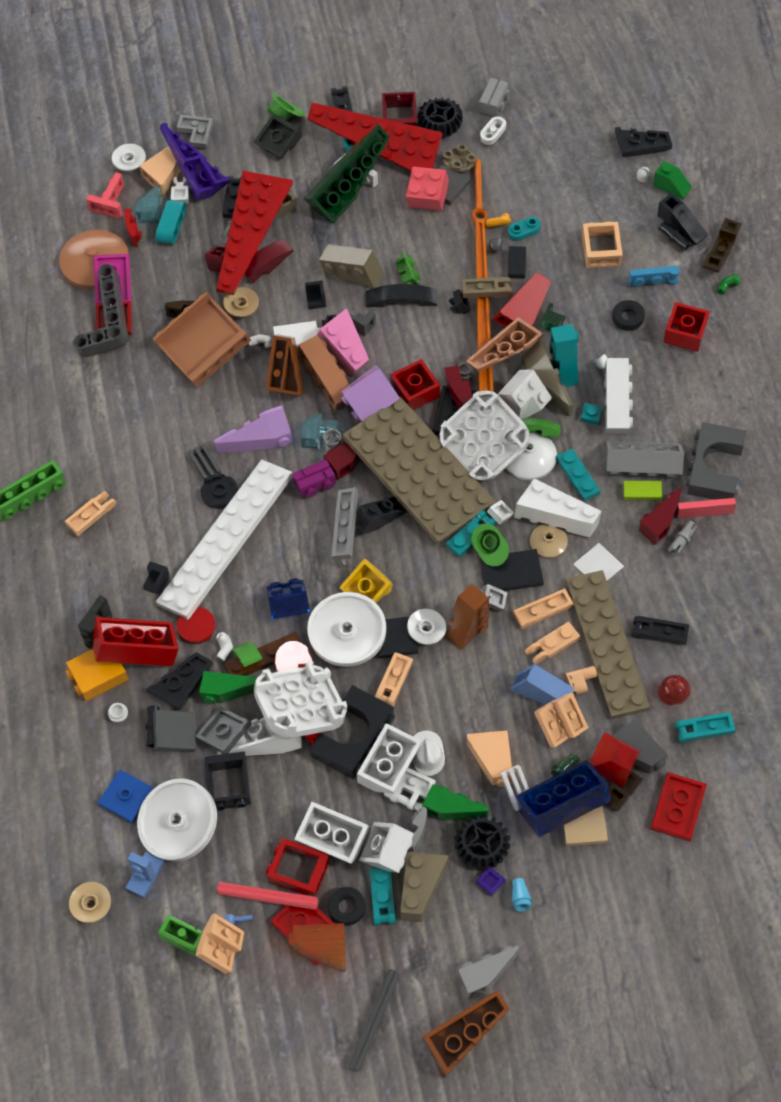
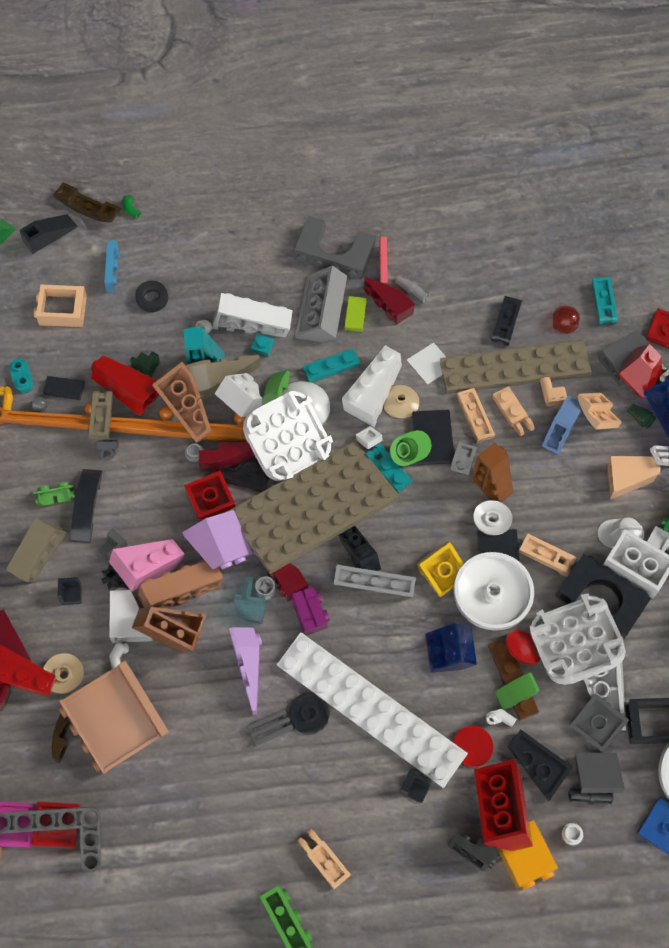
camera: 90 degrees left, 5 degrees up
(225, 687) = (550, 717): green slope -> none
(674, 236) = (63, 242): black pin -> none
(686, 326) = (180, 246): red brick -> none

